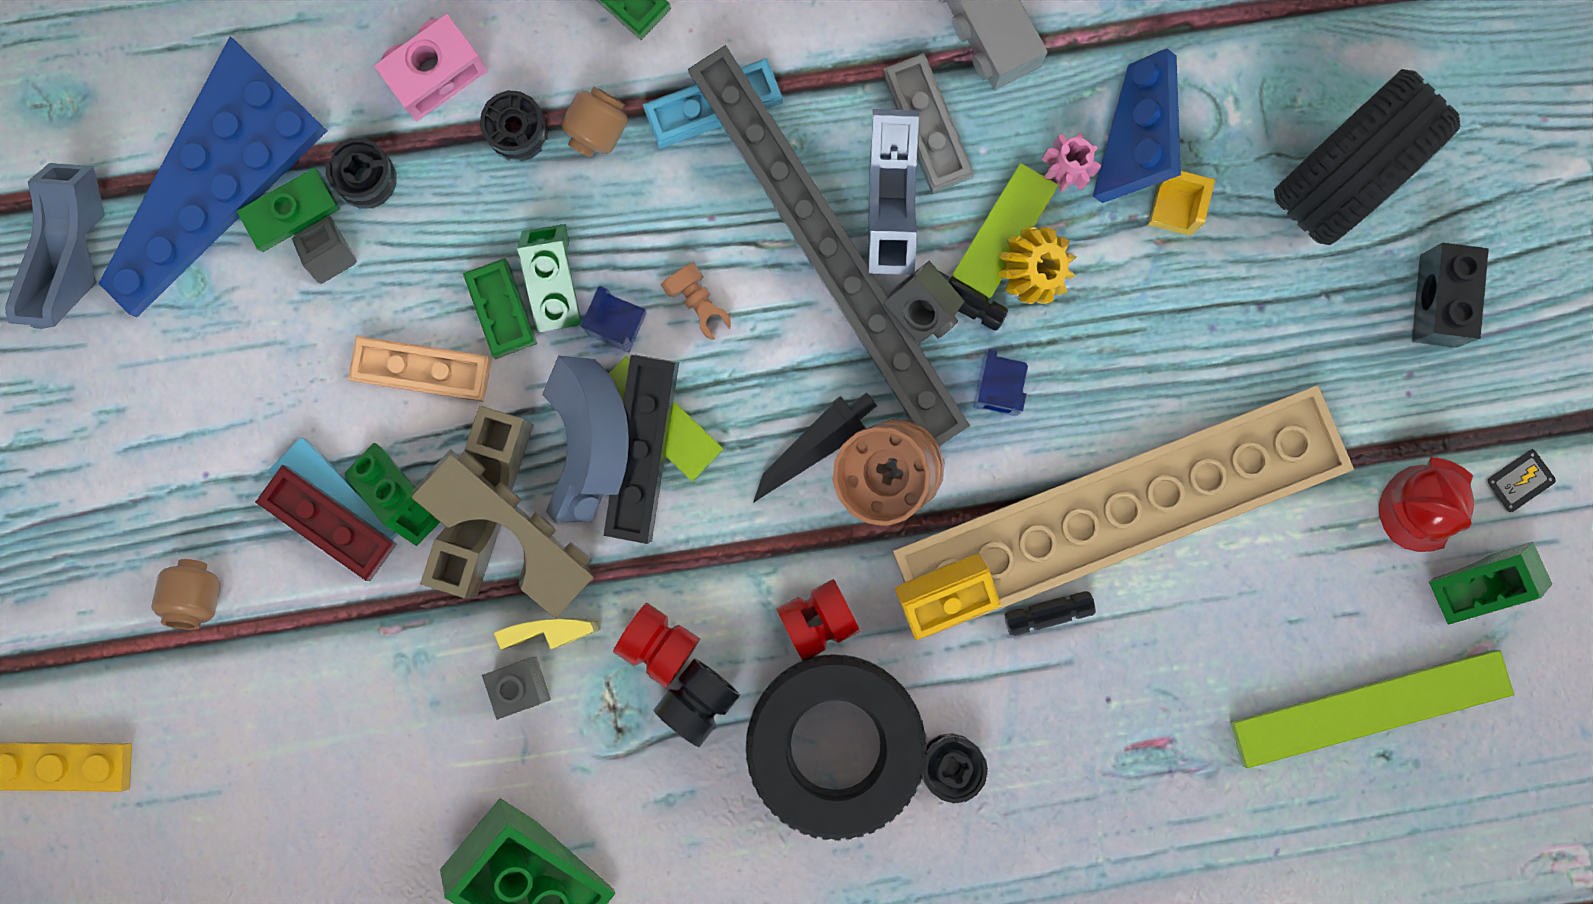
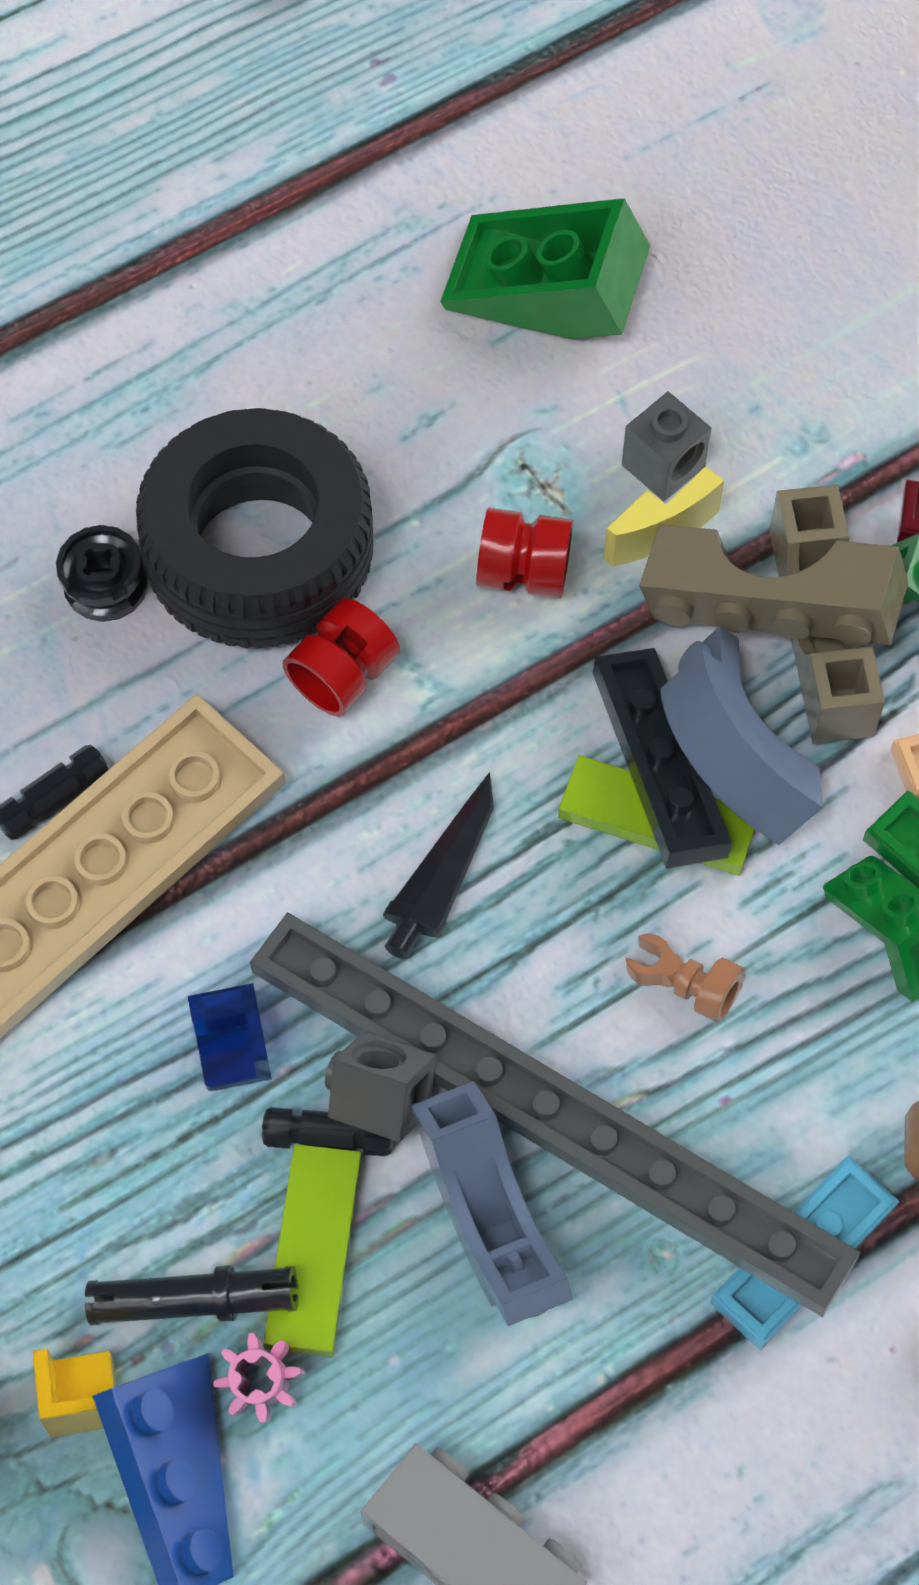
camera: 150 degrees right, 20 degrees down
(613, 320) = (780, 897): clear blue panel -> none
(696, 702) = (445, 513): black wheel -> none
(866, 482) = (330, 845): nougat wheel -> none
(939, 144) = (490, 1359): light grey tile -> none
(947, 596) = (192, 744): yellow slope -> none
(1037, 265) = (247, 1204): yellow gear -> none
(1075, 221) = (218, 1294): none -> black pin

